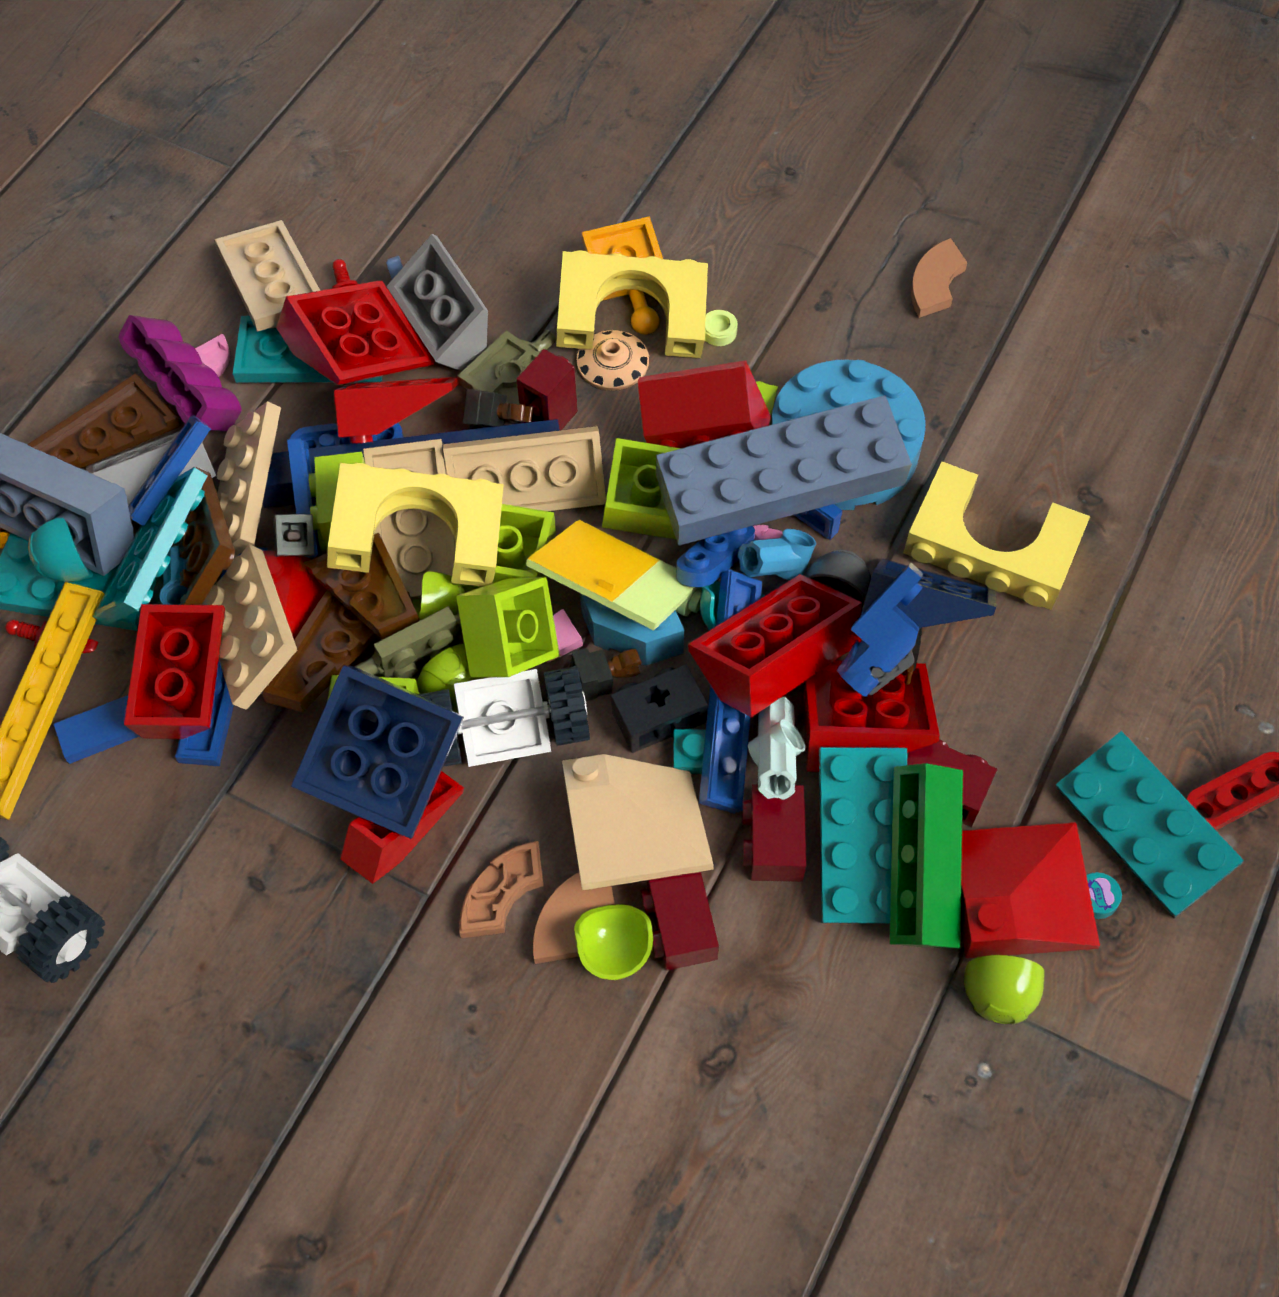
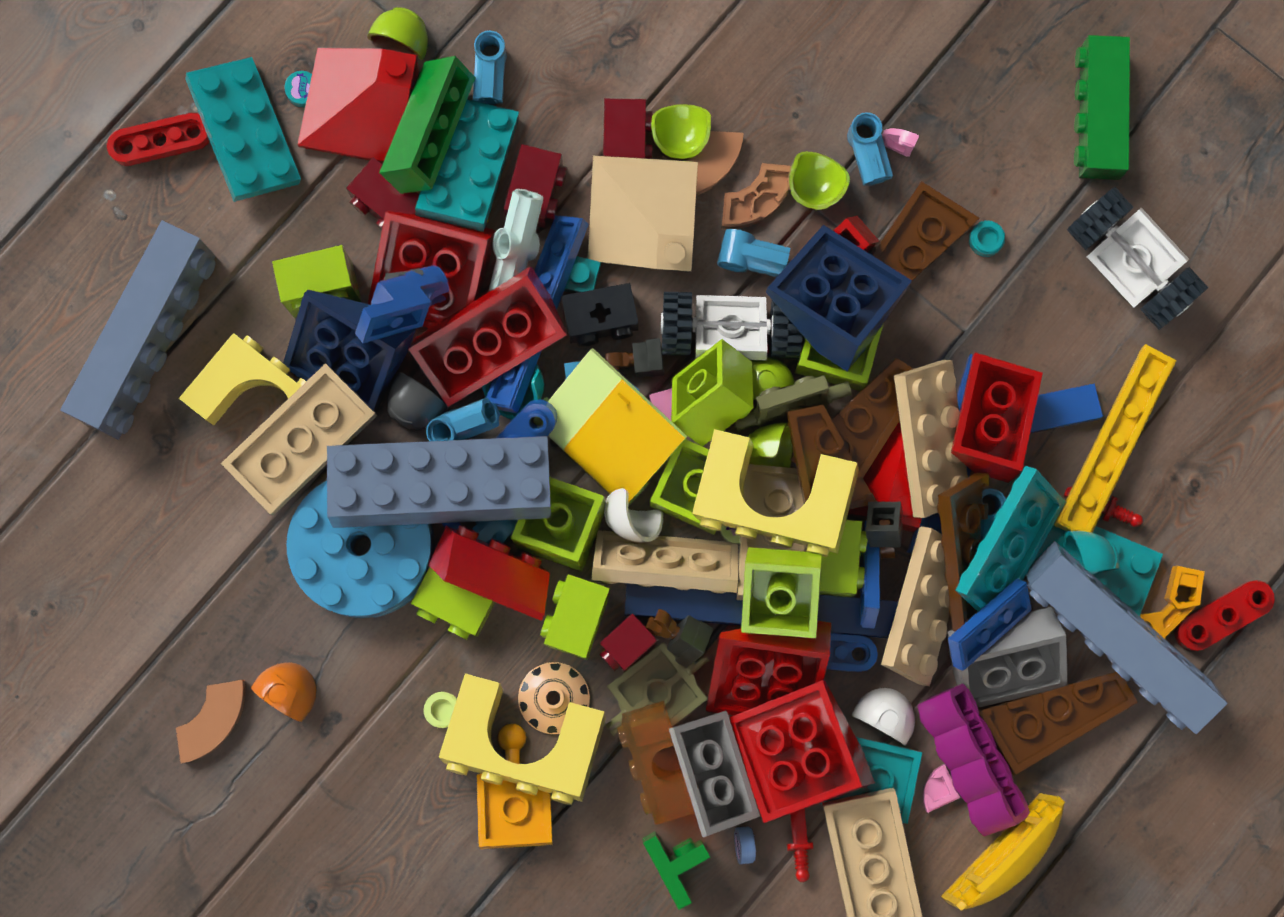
camera: 170 degrees left, 20 degrees up
(61, 1100) = (1103, 107): none -> green brick
(141, 278) = (1008, 856): none -> yellow slope
(207, 902) = (986, 238): none -> teal tile
(279, 390) = (888, 712): none -> white helmet
(295, 879) = (923, 231): none -> reddish brown wing
(321, 993) = (900, 140): none -> bright pink tile
(368, 970) = (870, 152): none -> dark azure piece
(393, 426) = (781, 592): none -> lime brick
(427, 916) = (817, 180): none -> lime helmet
(465, 233) = (685, 856): none -> green bracket
(505, 813) = (743, 252): none -> dark azure piece
(511, 319) = (665, 791): none -> clear orange arch
(570, 502) = (631, 524): none -> white helmet
(608, 398) = (576, 616): none -> lime brick
(874, 964) = (489, 70): none -> dark azure piece
(877, 309) = (287, 689): none -> orange helmet
(945, 495) = (295, 438): none -> tan plate
(989, 658) = (321, 271): none -> lime brick
(1161, 573) = (140, 331): none -> sand blue brick

